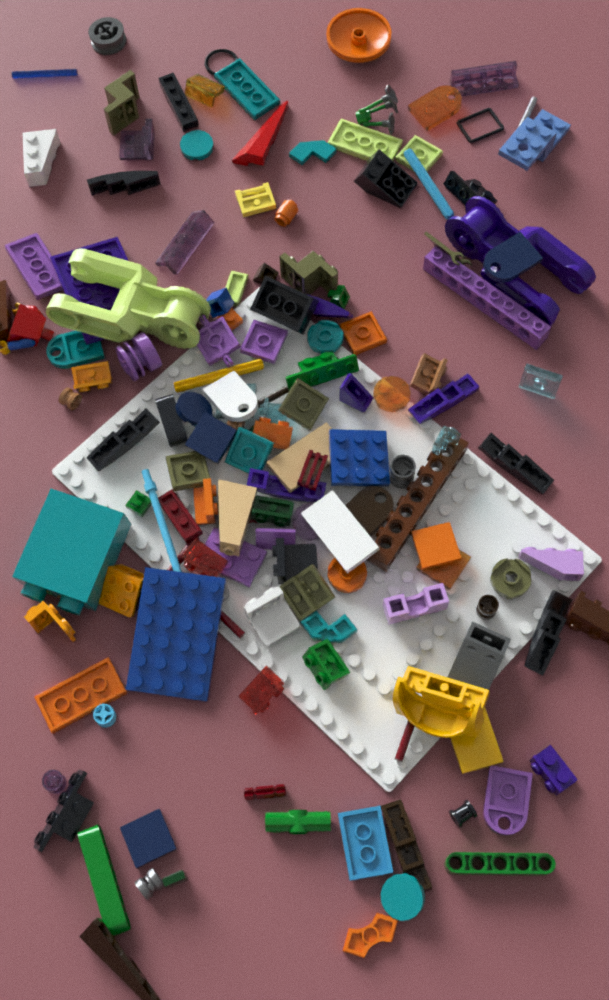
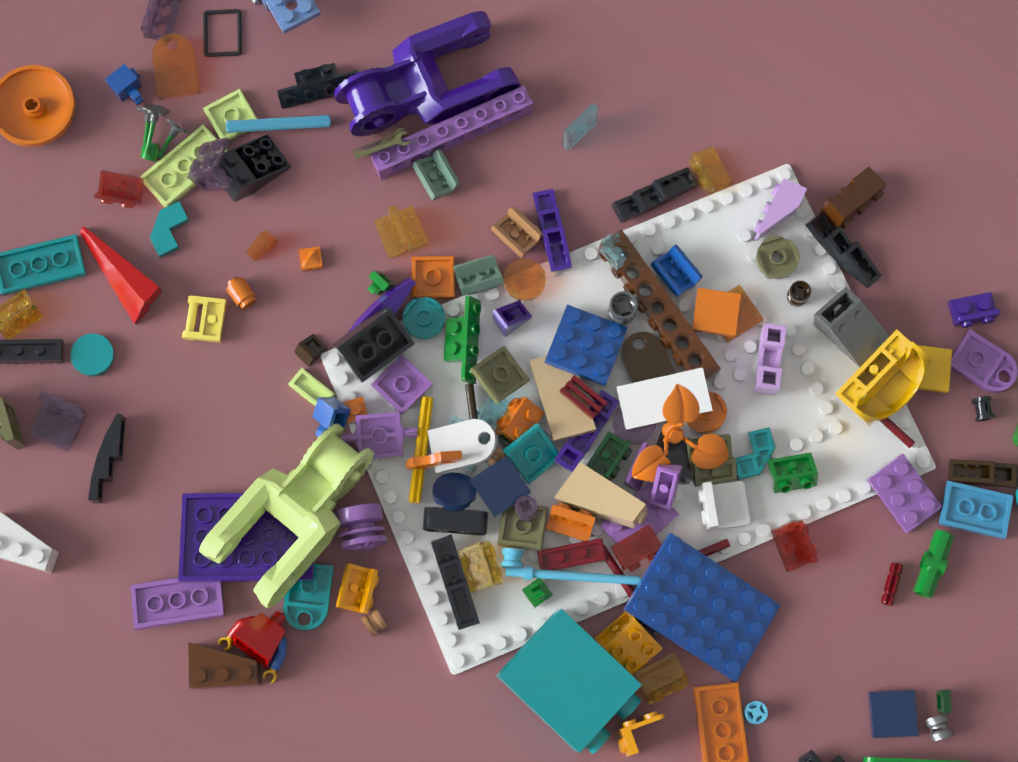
camera: 70 degrees left, 10 degrees up
(105, 627) = (662, 678): none -> clear yellow bracket
(143, 453) = (480, 566): none -> clear yellow bracket
(158, 472) = (512, 558): none -> medium azure wheel
(185, 241) = (225, 416): clear purple fence -> none
(204, 466) = (528, 512): none -> clear purple wheel
(209, 379) = (428, 461): none -> orange tile
(264, 558) = (665, 486): none -> medium lavender slope
(308, 273) = (339, 294): olive bracket -> none
(325, 110) = (119, 189): none -> clear red bracket
(328, 533) = (679, 408): none -> orange plant
(330, 211) = (262, 244): none -> clear orange cone
(335, 247) = (310, 258): none -> orange tile
(351, 770) = (904, 493): none -> medium lavender plate
(361, 153) = (204, 169): none -> clear purple bracket
(379, 360) = (478, 275): none -> sand green bracket
(388, 295) = (400, 231): none -> clear yellow bracket
(406, 81) = (125, 84): none -> blue brick
(444, 300) = (436, 175): none -> sand green bracket
(455, 501) = (676, 271): none -> blue bracket
(512, 258) = (435, 84): dark blue tile -> none
(560, 498) = (710, 170): none -> clear yellow bracket

